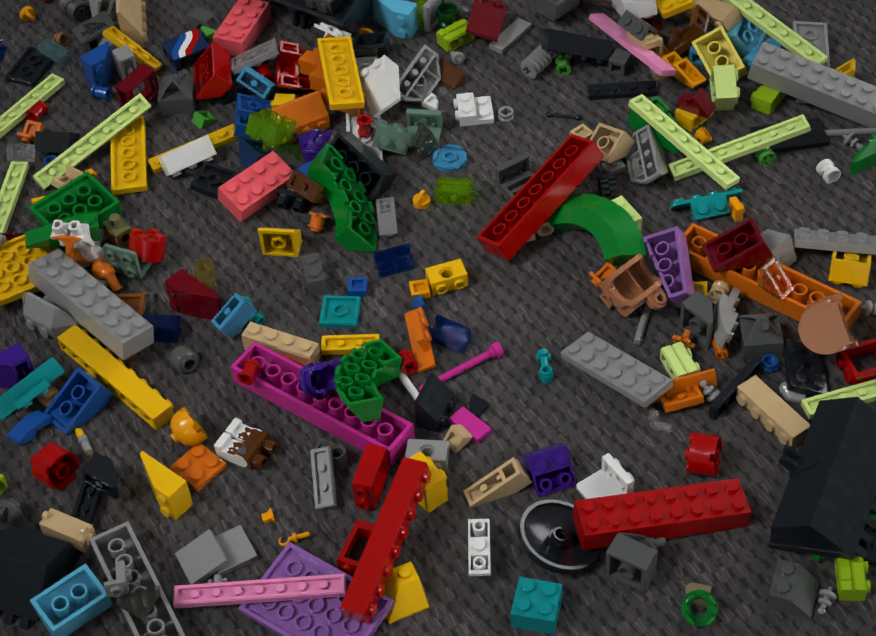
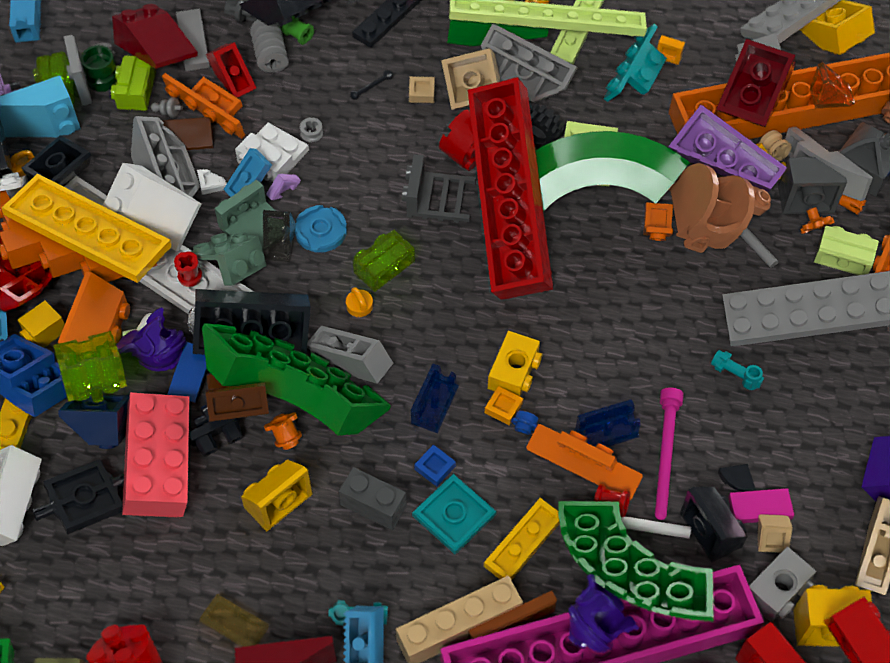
camera: 55 degrees left, 10 degrees up
(449, 106) = (252, 168): none -> dark azure plate
(458, 126) = (281, 184): none -> lavender tile
(477, 67) = (210, 101): none -> orange bracket
(505, 60) = (231, 69): none -> red slope

